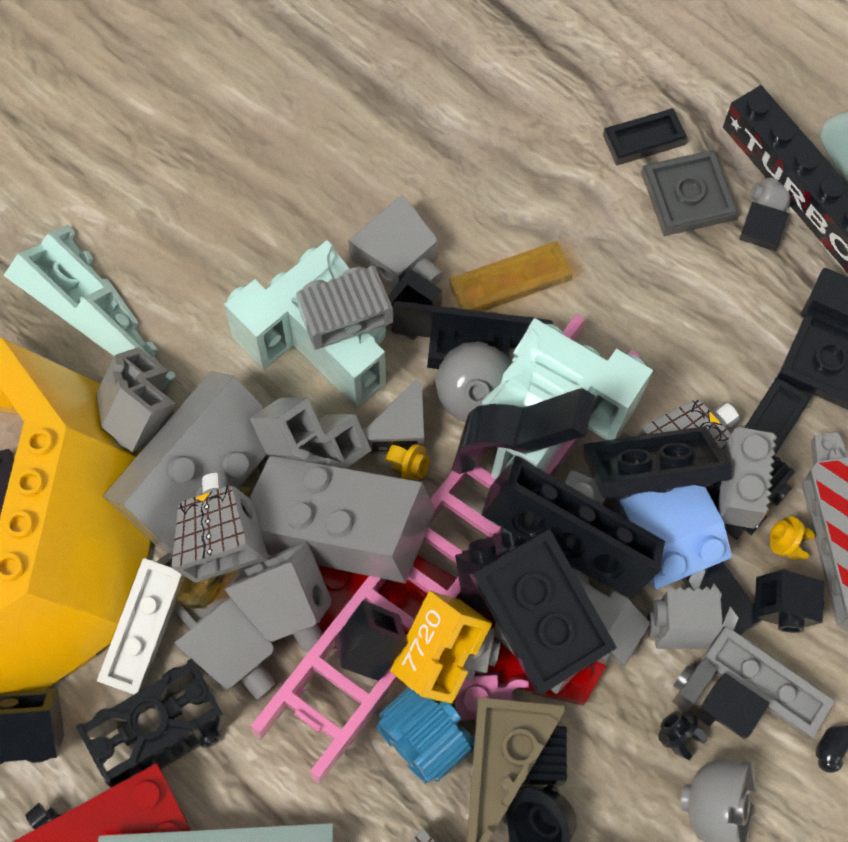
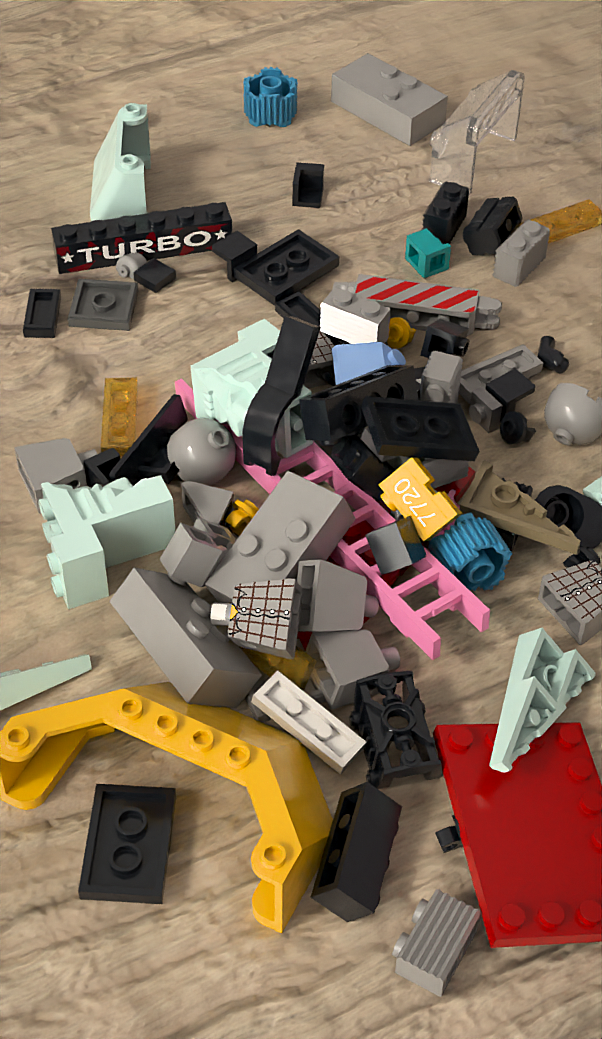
camera: 70 degrees left, 20 degrees down
(131, 400) = (105, 666): light grey brick -> none
(344, 306) = (114, 478): light grey brick -> none
(656, 462) = (332, 351): black plate -> none

